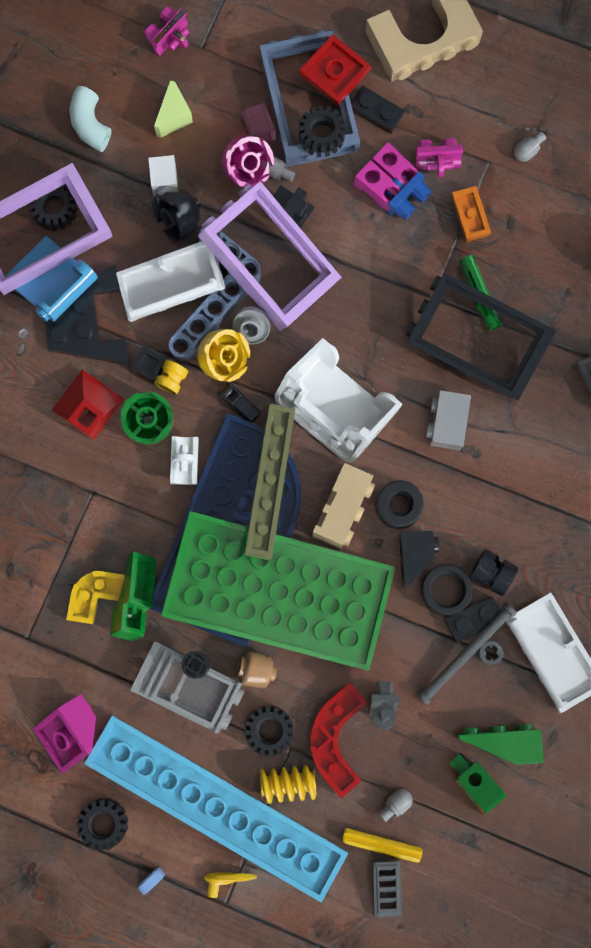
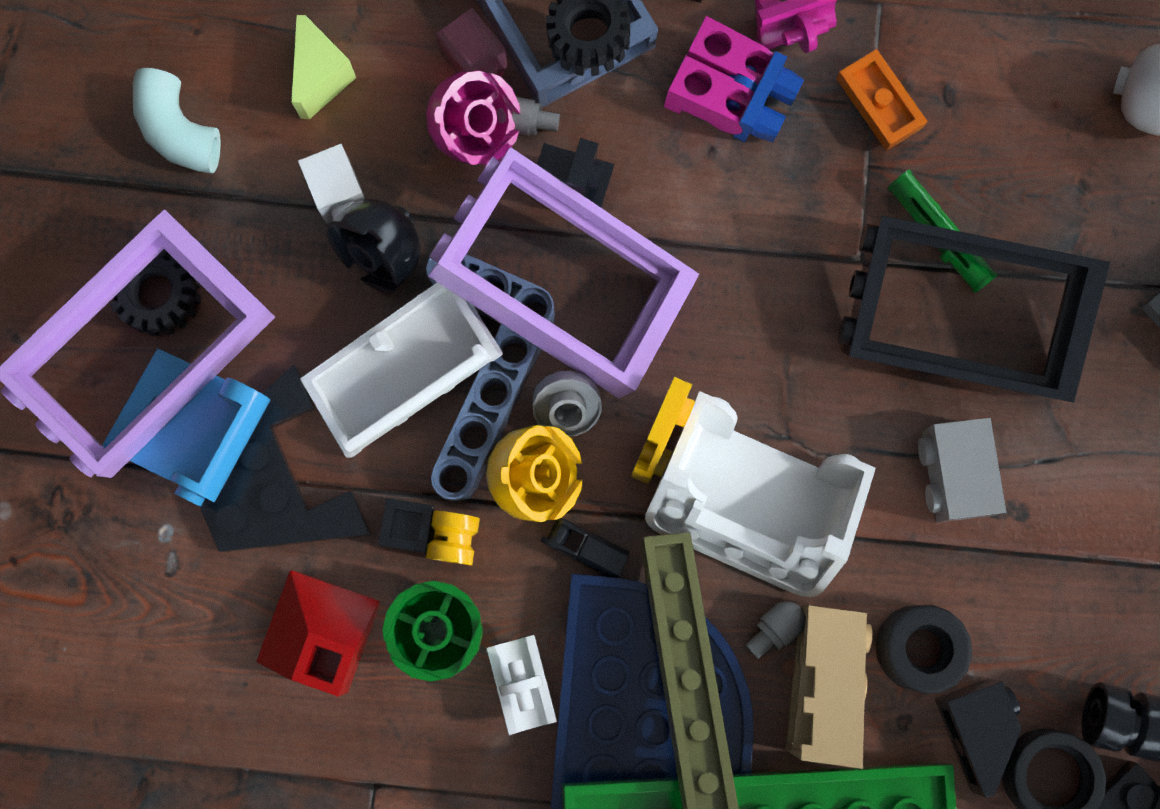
camera: 15 degrees left, 0 degrees up
(302, 342) = (674, 410): none -> yellow plate
(326, 473) = (777, 628): none -> light grey cylinder

